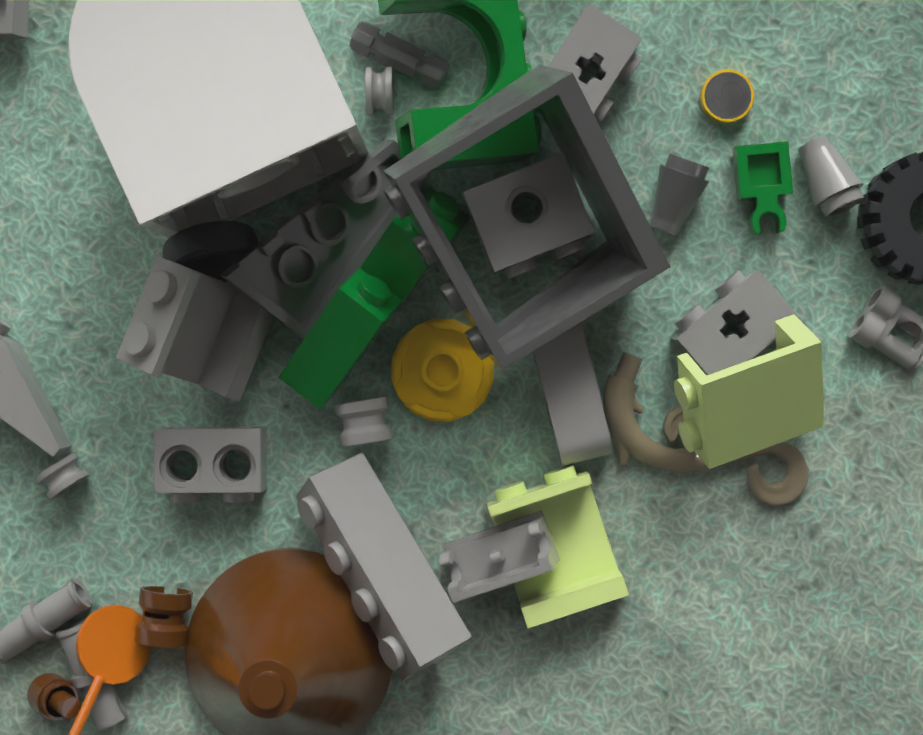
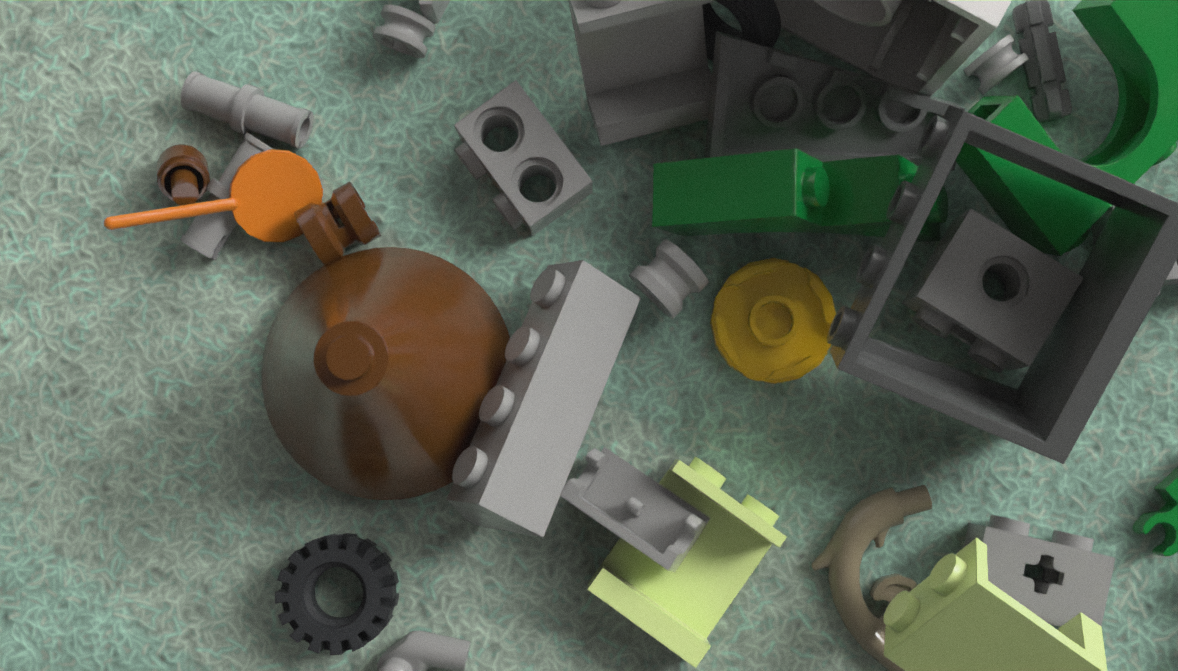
camera: 55 degrees right, 5 degrees down
(573, 398) = (849, 463): light grey beam -> none
(677, 192) = (1126, 421): dark grey cone -> none

